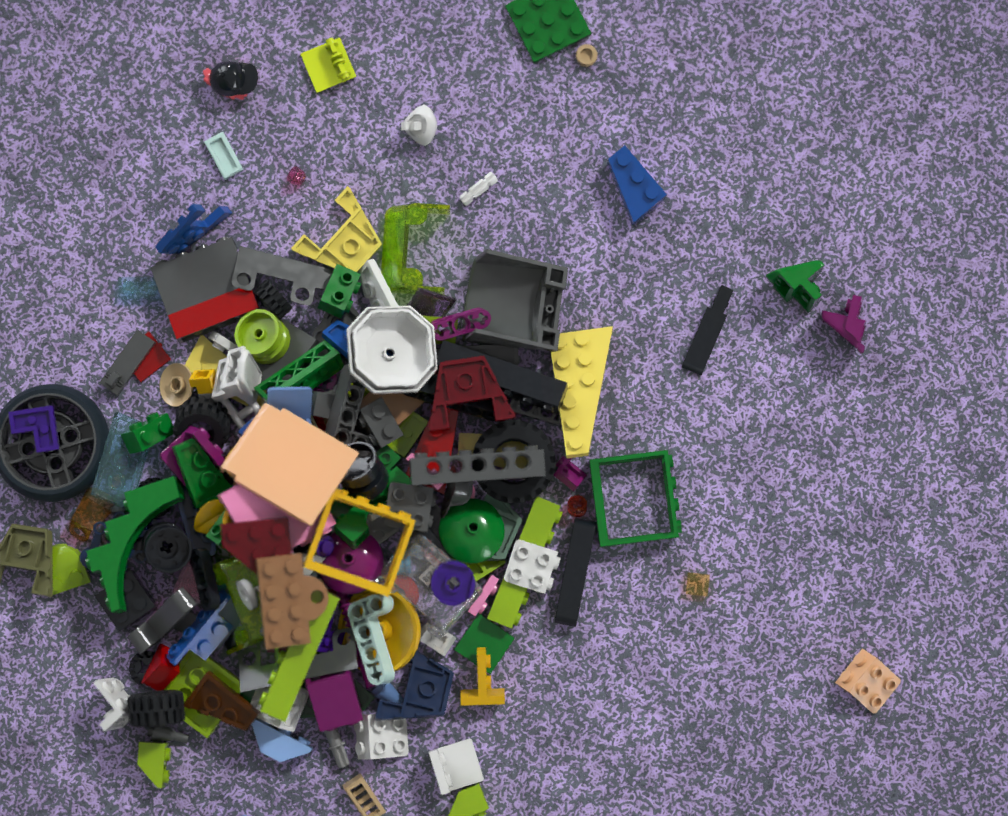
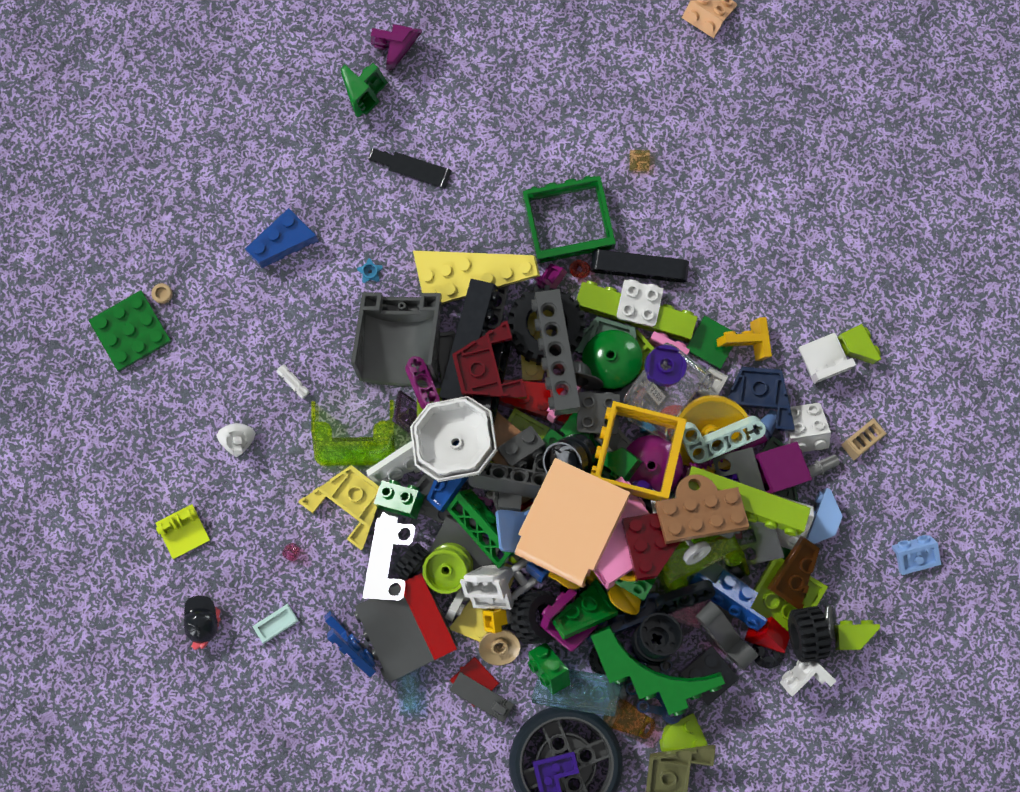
camera: 95 degrees left, 5 degrees down
(600, 278) = (370, 276): none -> dark azure plate

